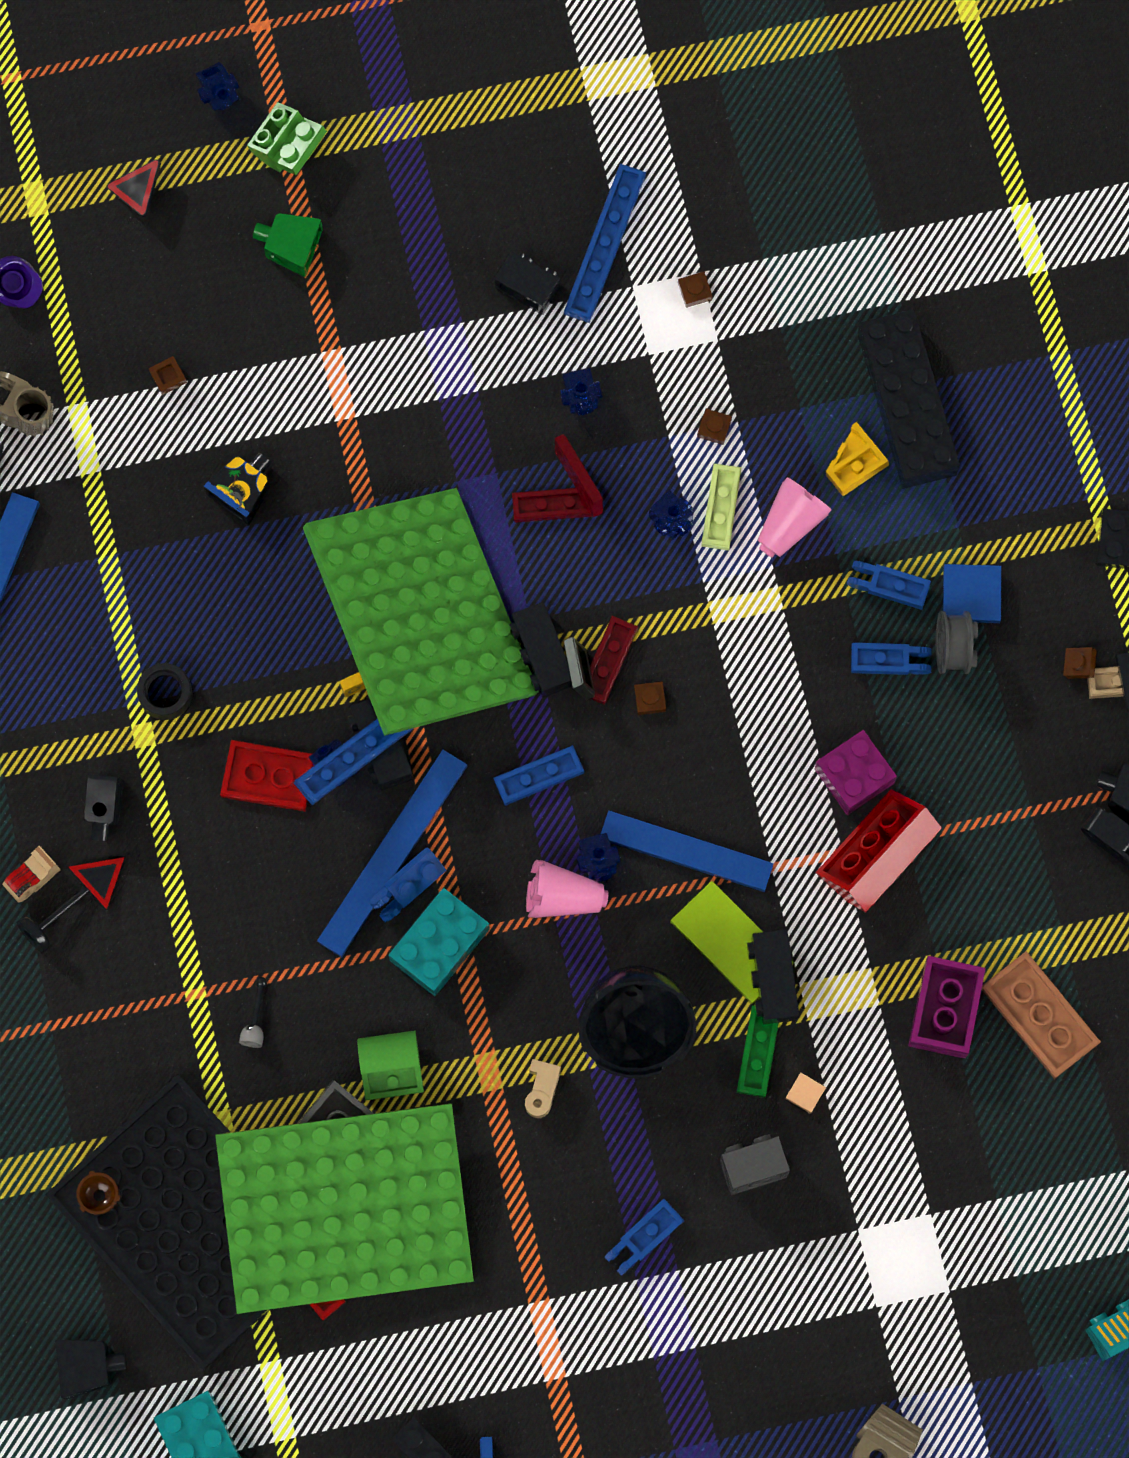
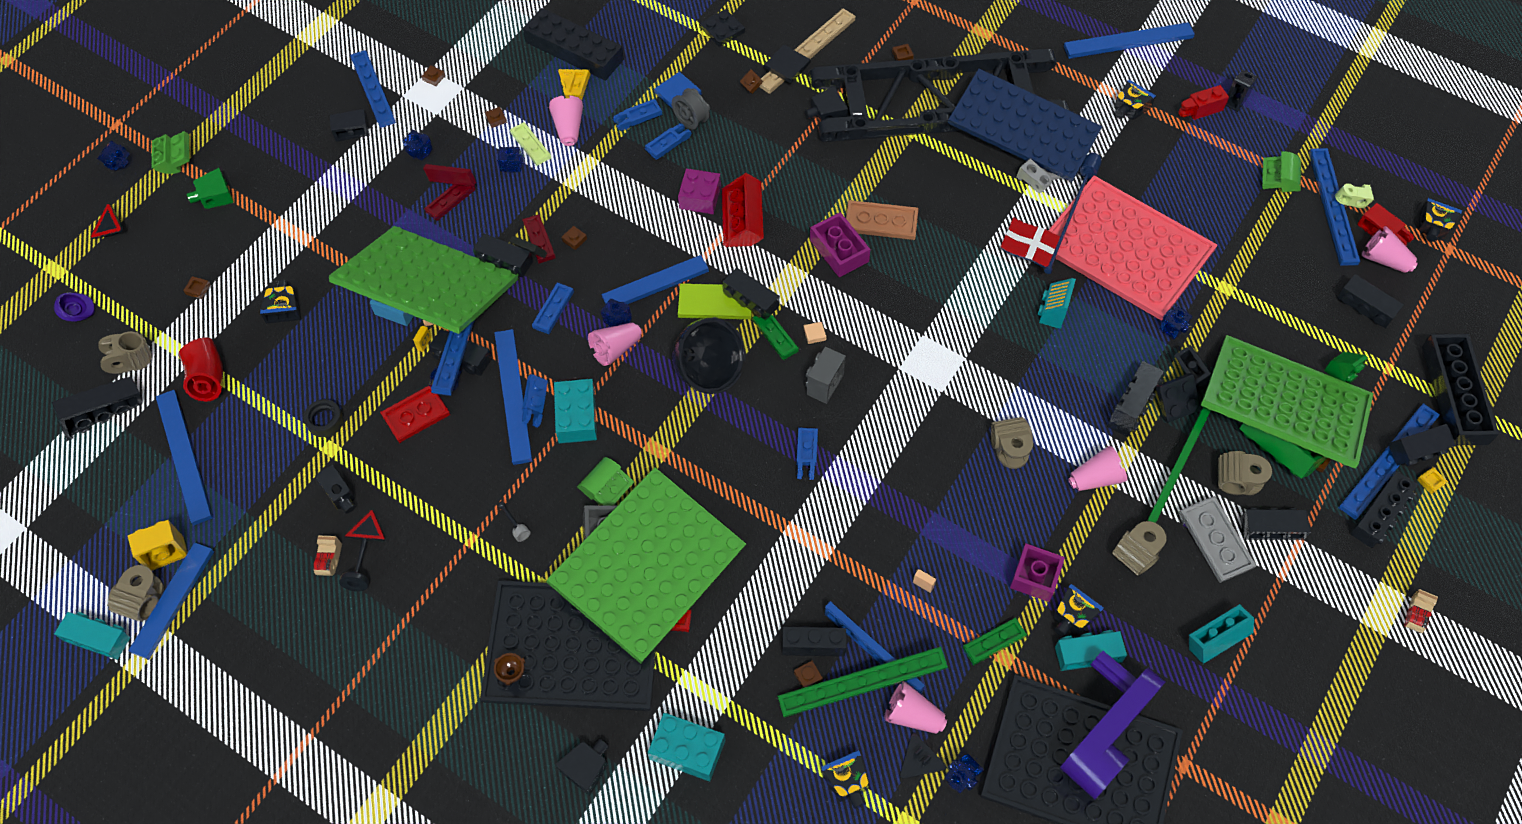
camera: 45 degrees left, 15 degrees down
(84, 509) = (202, 369): none -> red brick
(540, 1099) = (691, 430): tan leg -> none

